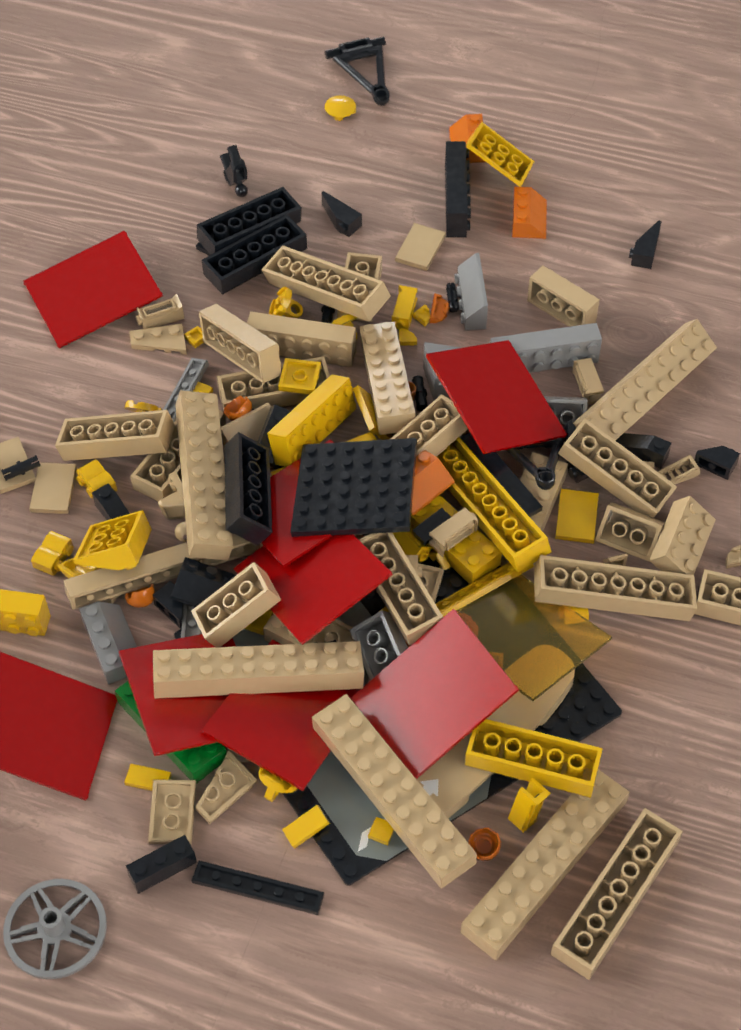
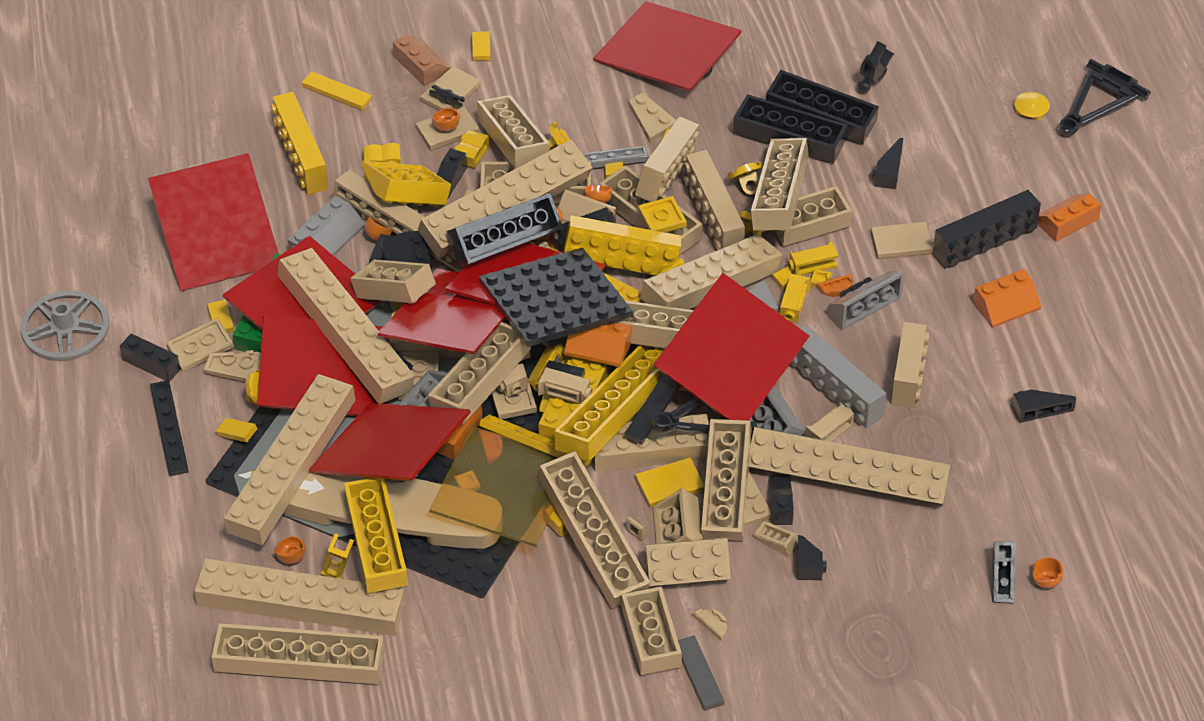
camera: 60 degrees right, 5 degrees down
(51, 480) = (446, 119): none -> orange hair
(160, 313) = (675, 101): tan window -> none
(433, 334) = (794, 297): none -> yellow window
(500, 154) = (1043, 236): yellow slope -> none

